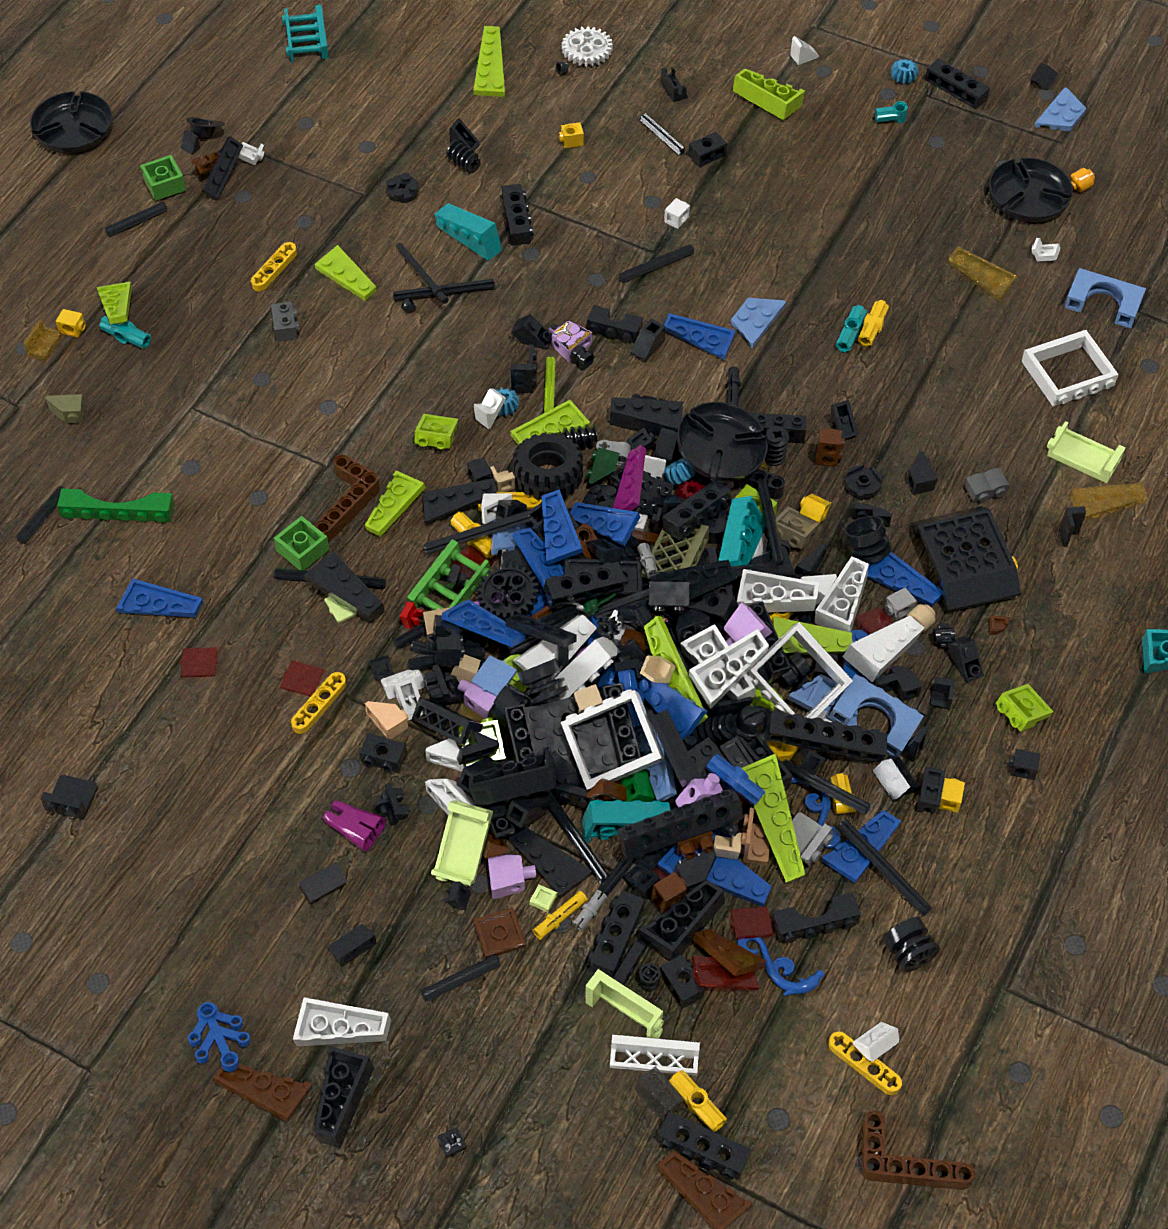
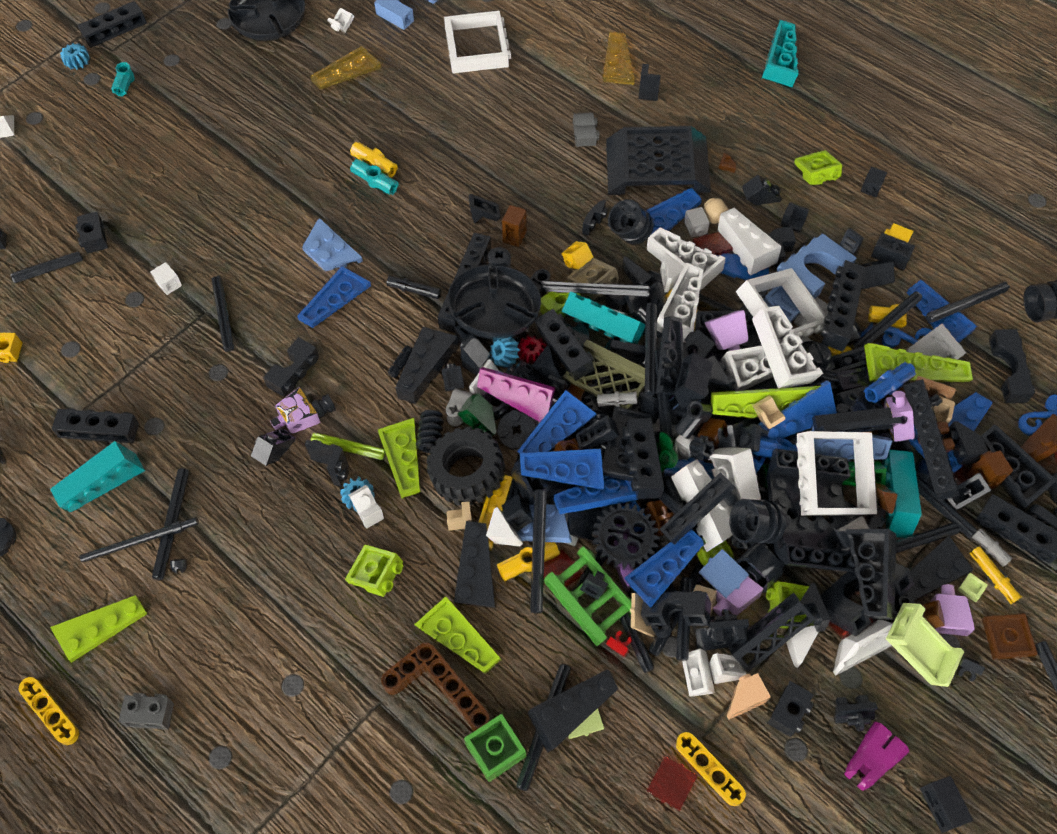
camera: 75 degrees left, 5 degrees up
(352, 945) = (1019, 786): black panel -> none
(381, 667) = (680, 690): black tile -> none
(479, 470) = (446, 537): black brick -> none
(587, 697) = (790, 481): tan panel -> none
(648, 340) = (327, 340): black slope -> none
(751, 923) = (1011, 416): clear red piece -> none
(768, 94) = (45, 164): lime wedge -> none
(830, 639) = (724, 293): lime wing -> none
(861, 490) = (553, 222): black plate -> none
(921, 476) = (558, 170): black slope -> none
(943, 634) = (736, 199): black gear -> none
(1084, 453) = (569, 58): yellowish green panel -> none

